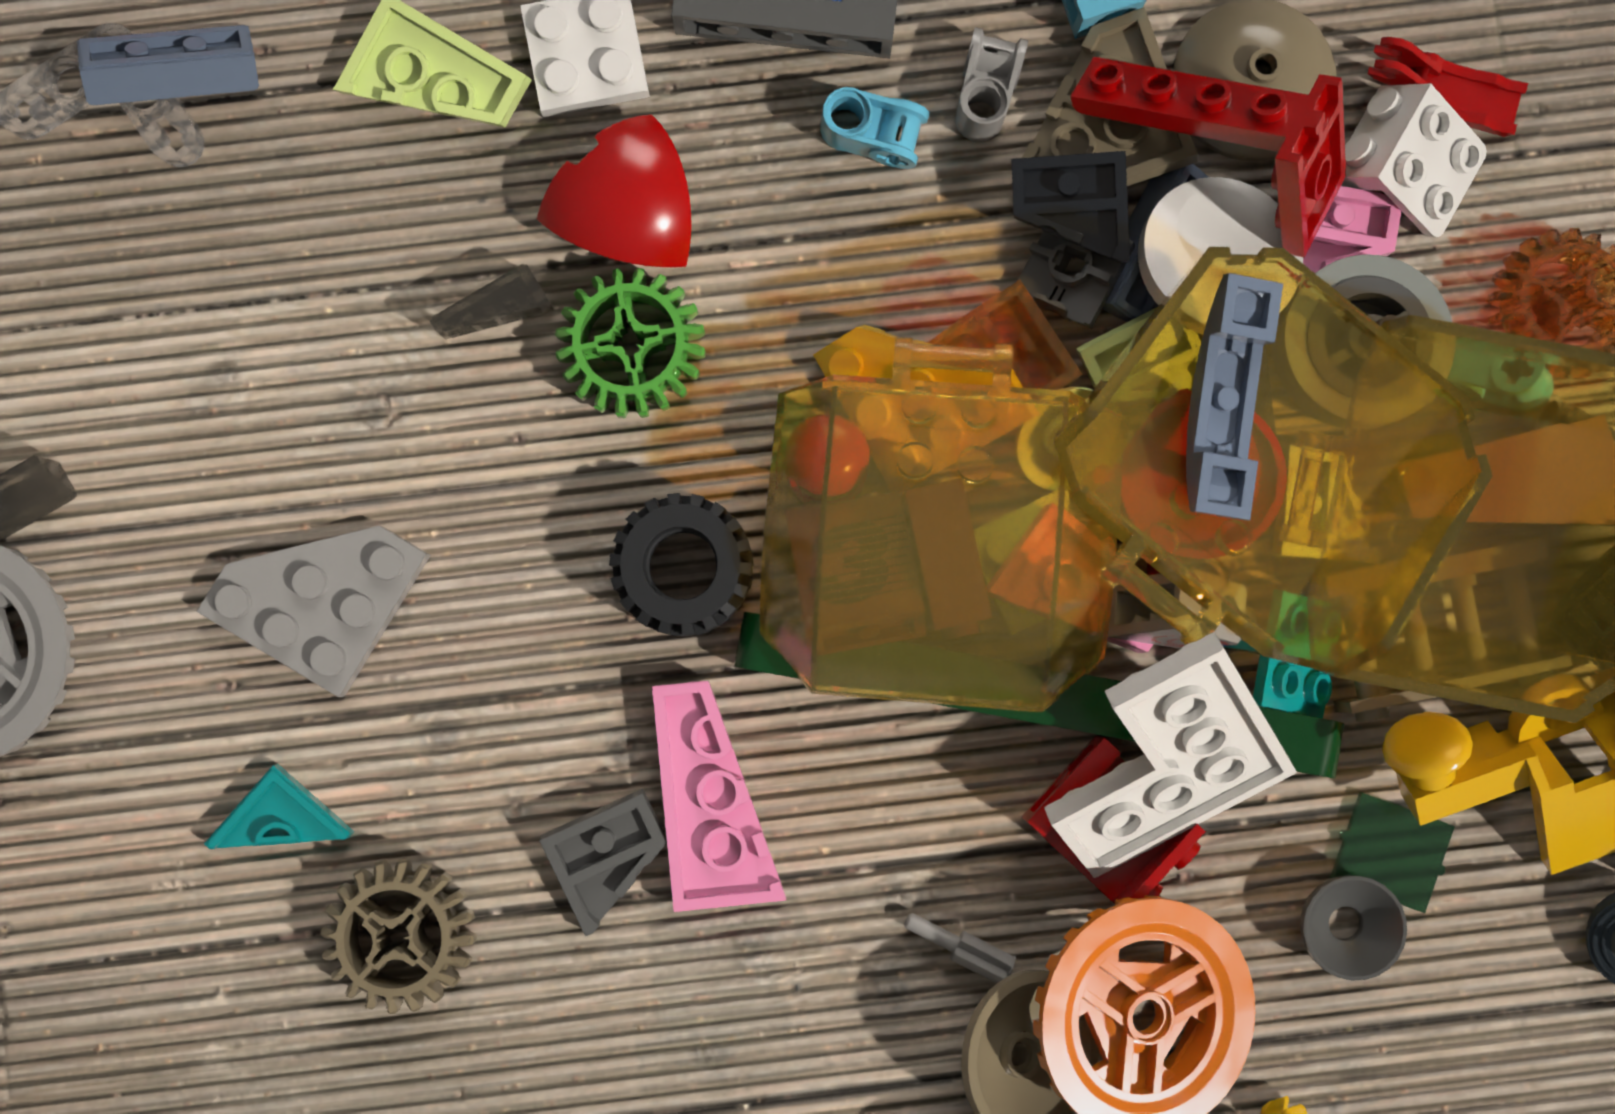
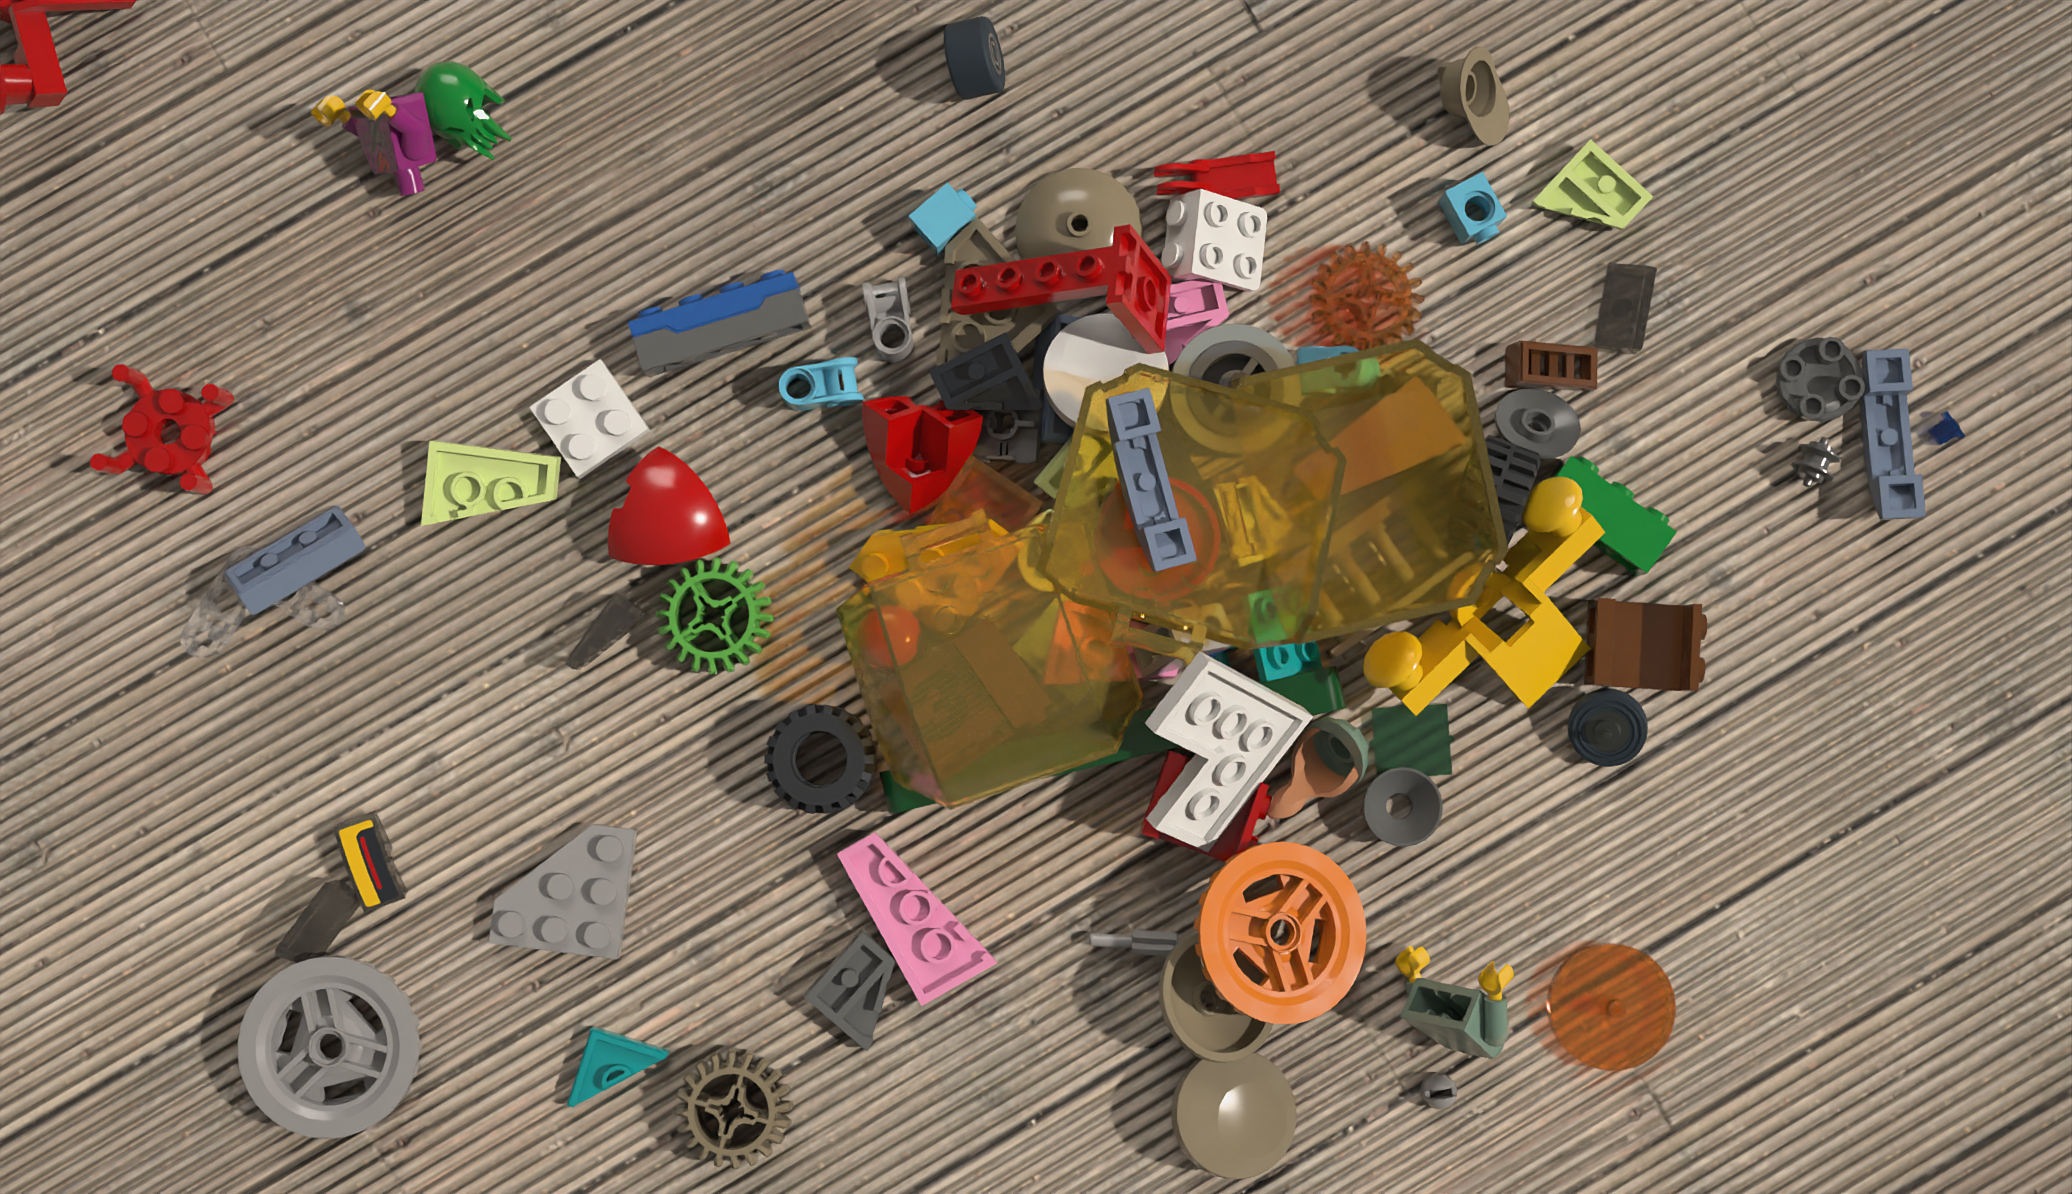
camera: 25 degrees left, 0 degrees up
(99, 453) = (369, 861): none -> slope
(957, 247) = (918, 446): none -> red brick
(1280, 833) = (1323, 764): none -> piece

